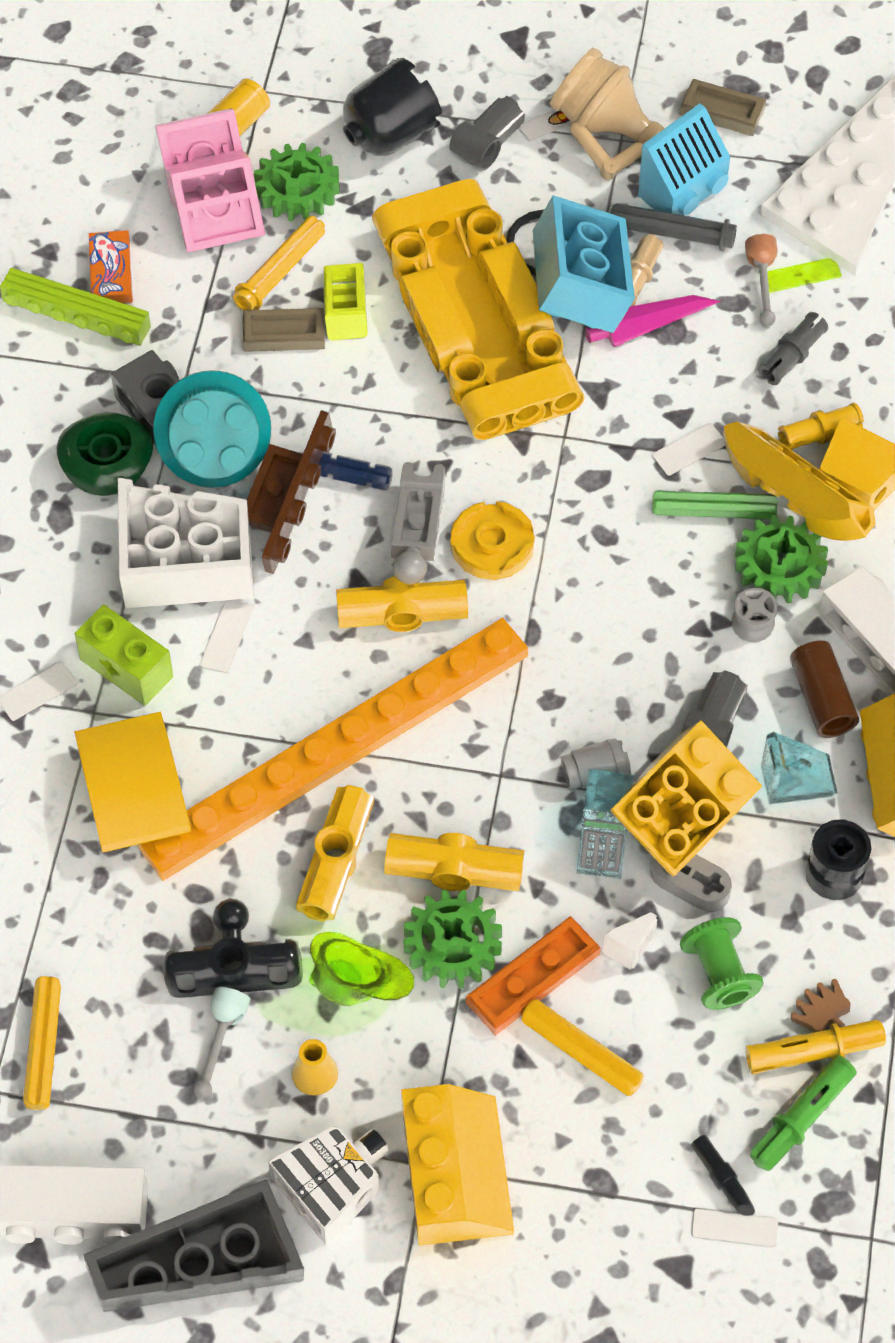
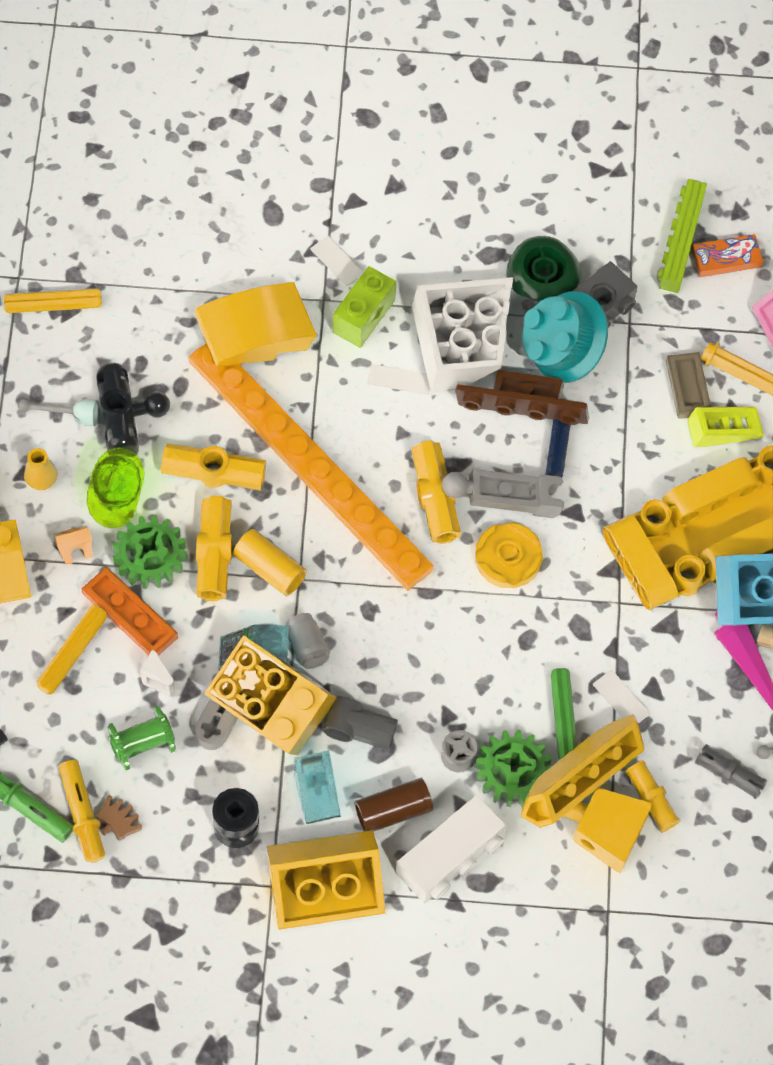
camera: 80 degrees right, 5 degrees up
(424, 1034) = (71, 539): none -> light orange tile
(483, 796) = (269, 562): none -> yellow pin

